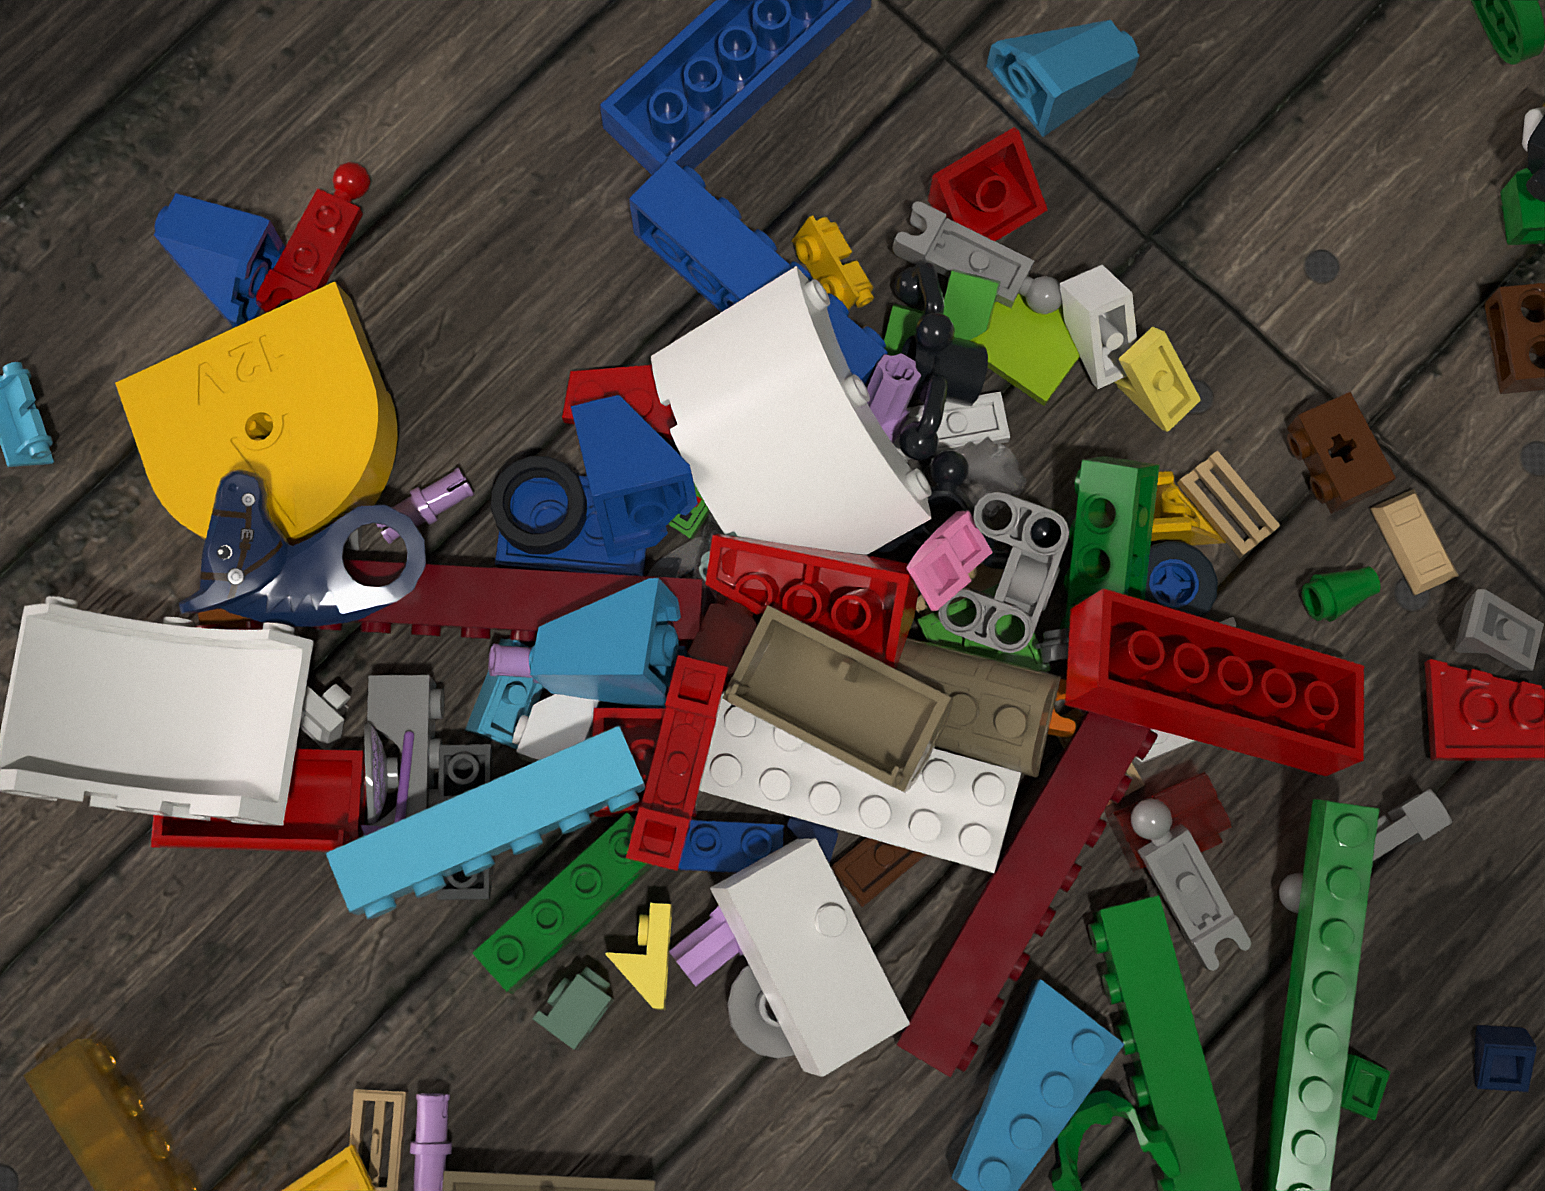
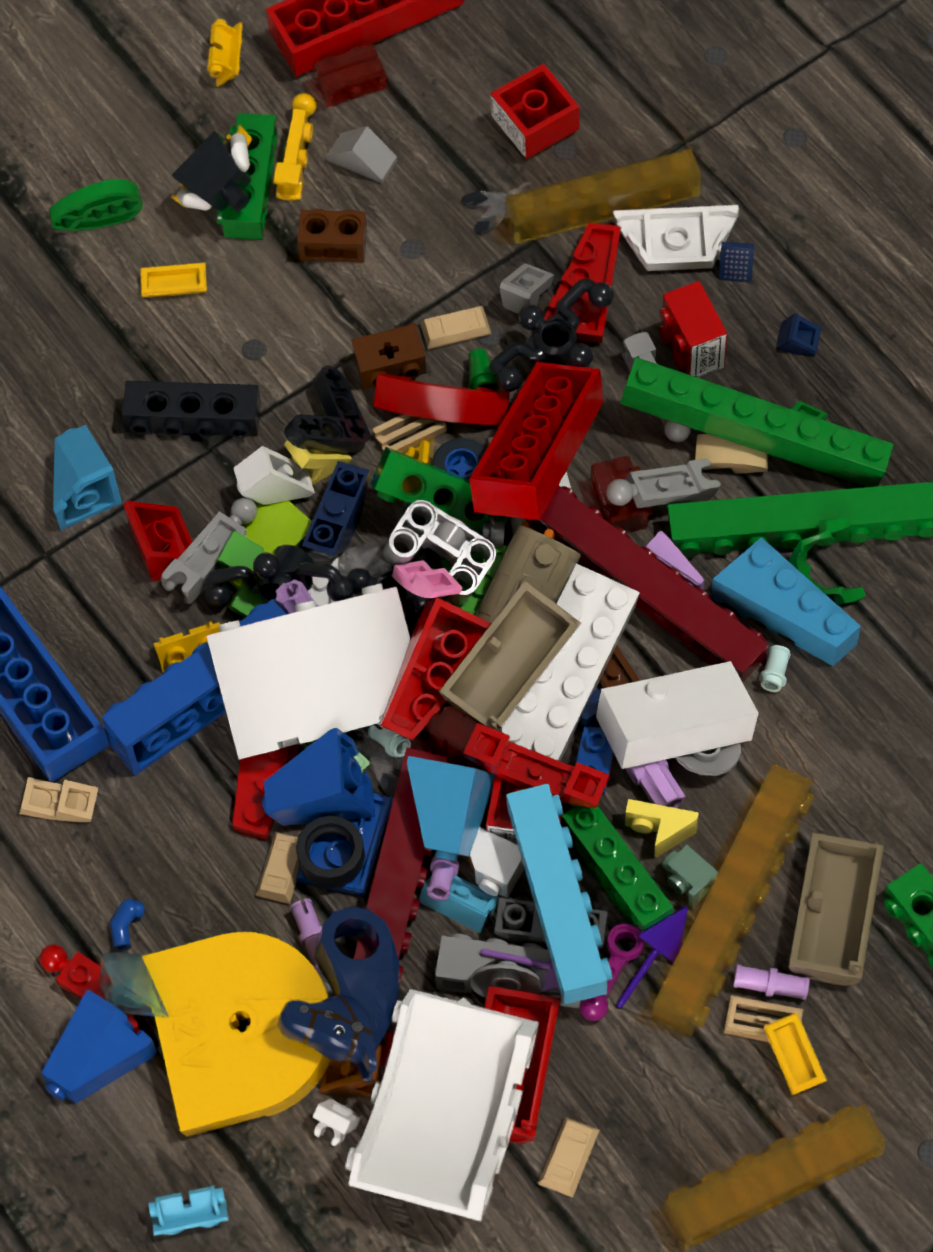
camera: 75 degrees left, 15 degrees down
(153, 898) = (568, 1157): none -> tan tile
(166, 580) = (337, 1117): none -> white tile
(288, 273) = (129, 985): none -> clear light blue slope
(417, 256) = (120, 921): none -> blue arm
(436, 923) = (597, 1007): none -> magenta piece
(473, 987) = (665, 939): none -> dark purple piece
(503, 444) = (280, 870): none -> tan tile
(549, 1077) = (732, 900): none -> clear yellow brick
(578, 143) = (59, 802): none -> tan slope
(925, 1092) = (773, 676): none -> light aqua pin
(1062, 423) = (338, 511): none -> dark blue slope
(1072, 914) = (671, 556): none -> lavender slope
(1201, 126) = (179, 397): none -> black brick
(1210, 401) = (347, 429): none -> black beam
(1269, 973) = (730, 455): none -> tan slope
(1272, 540) = (440, 401): none -> red slope
(1410, 133) = (173, 280): none -> yellow tile
(1434, 691) = (558, 331): none -> black wheel
(1468, 893) = (693, 331): none -> red brick

